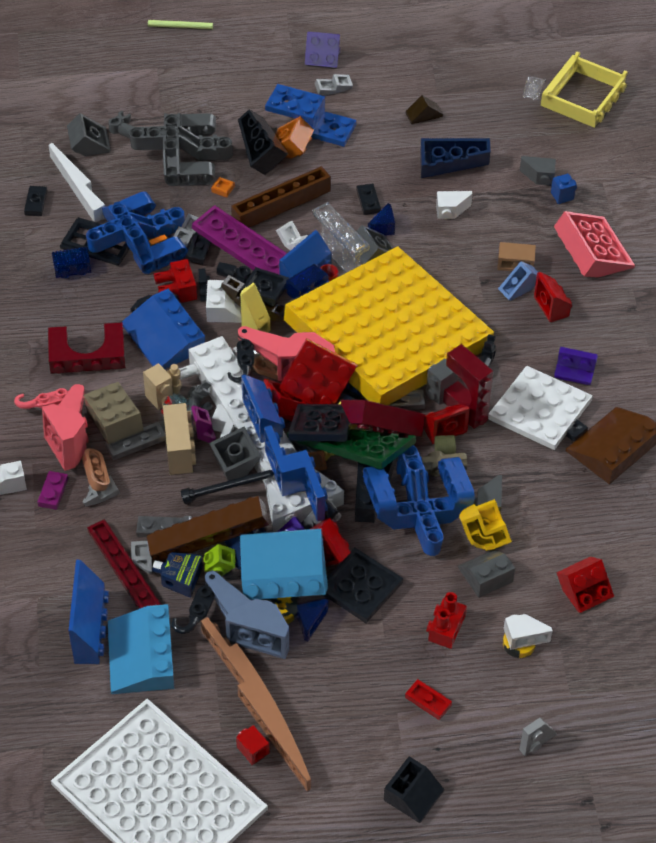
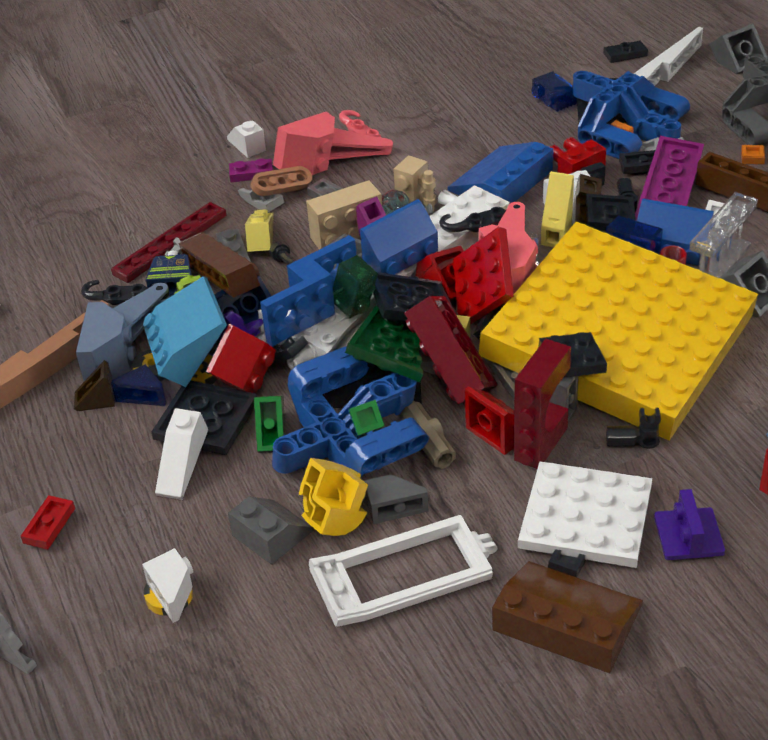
camera: 75 degrees right, 10 degrees down
(87, 615) = (80, 217): blue slope -> none
(108, 356) = (443, 149): dark red arch -> none
(113, 412) = (359, 164): dark tan brick -> none
(141, 651) = (60, 284): dark azure slope -> none
(151, 501) = (259, 231): none -> light yellow slope
(300, 646) = (96, 390): none -> dark brown slope
(305, 439) = (354, 286): none -> clear green brick
(386, 546) = (269, 421): none -> green slope
(402, 602) = (180, 452): none -> white slope
(430, 354) = (585, 354): none -> black plate
(437, 480) = (366, 417): none -> green plate
(445, 444) = (459, 431): olive piece -> none
(447, 621) = (169, 507): red brick -> none
(551, 548) = (343, 600): none -> white animal
(586, 583) = (284, 637): red slope -> none

